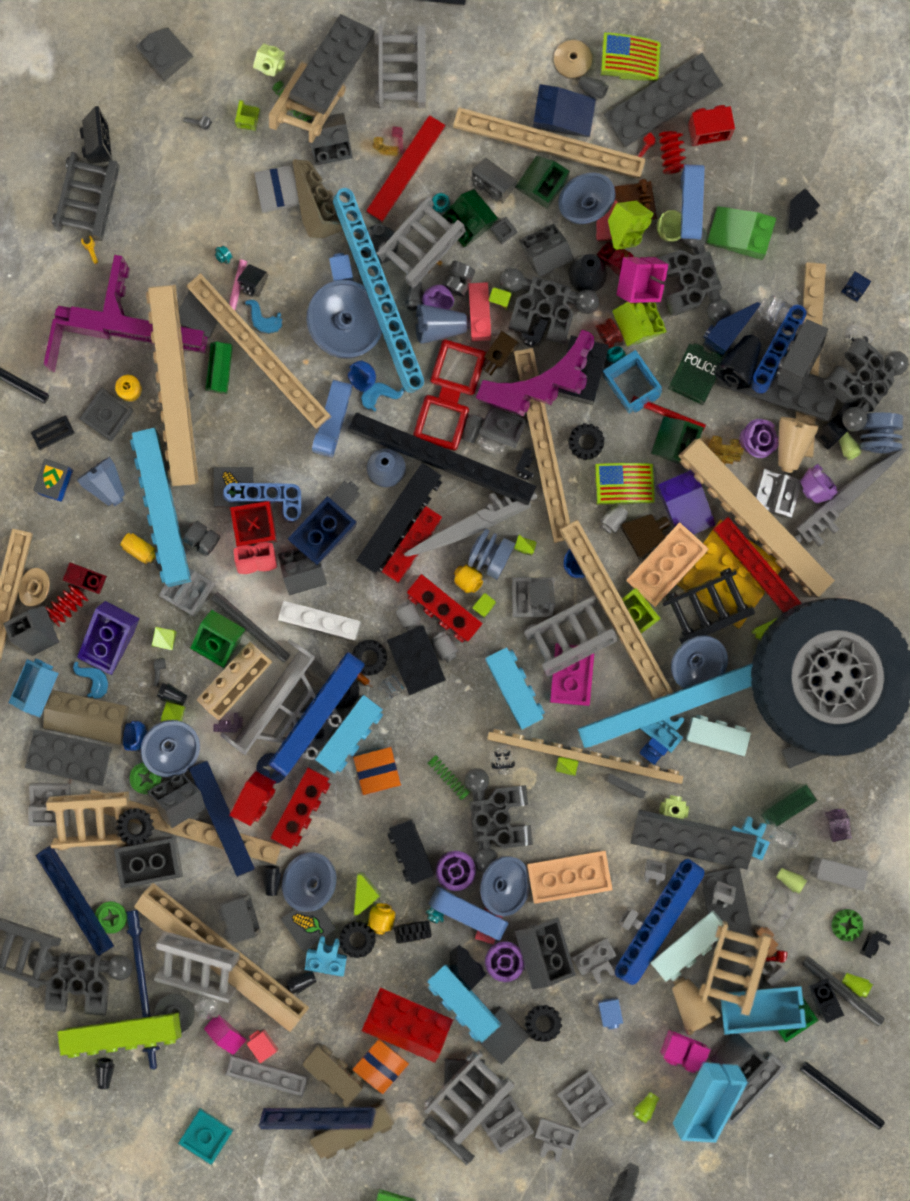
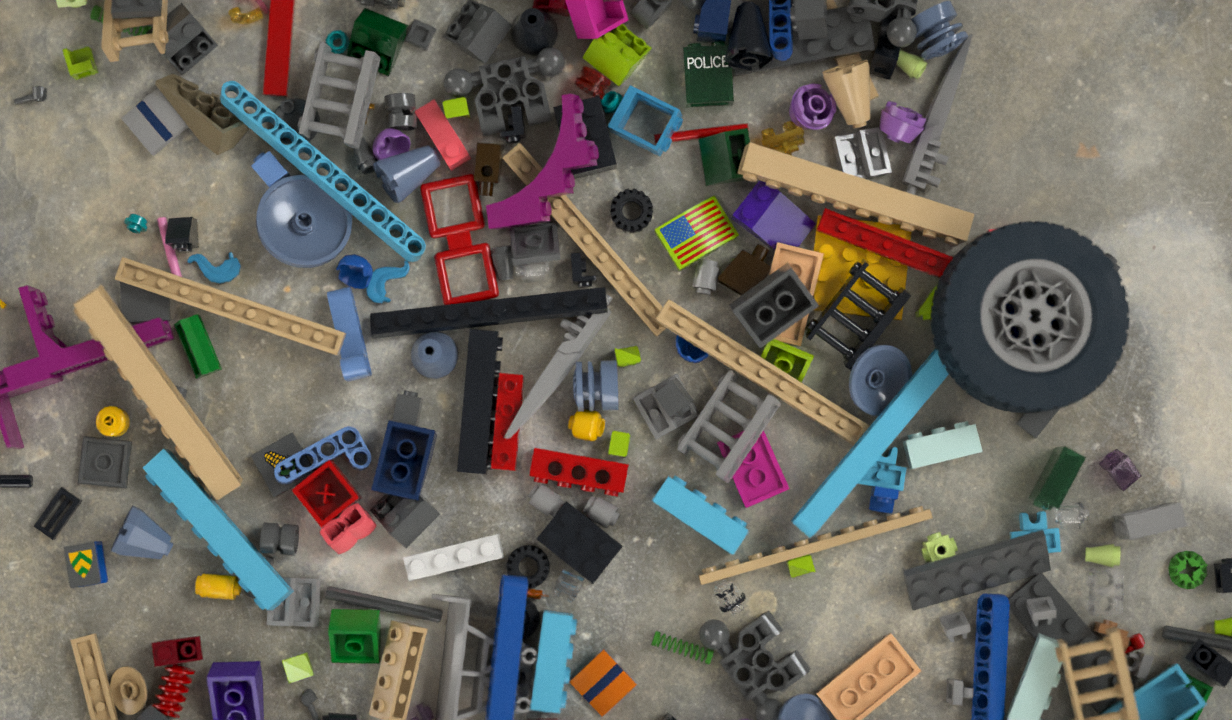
camera: 25 degrees left, 0 degrees up
(625, 786) = (874, 553): dark grey tile -> none
(651, 566) = (773, 305): none -> dark grey brick

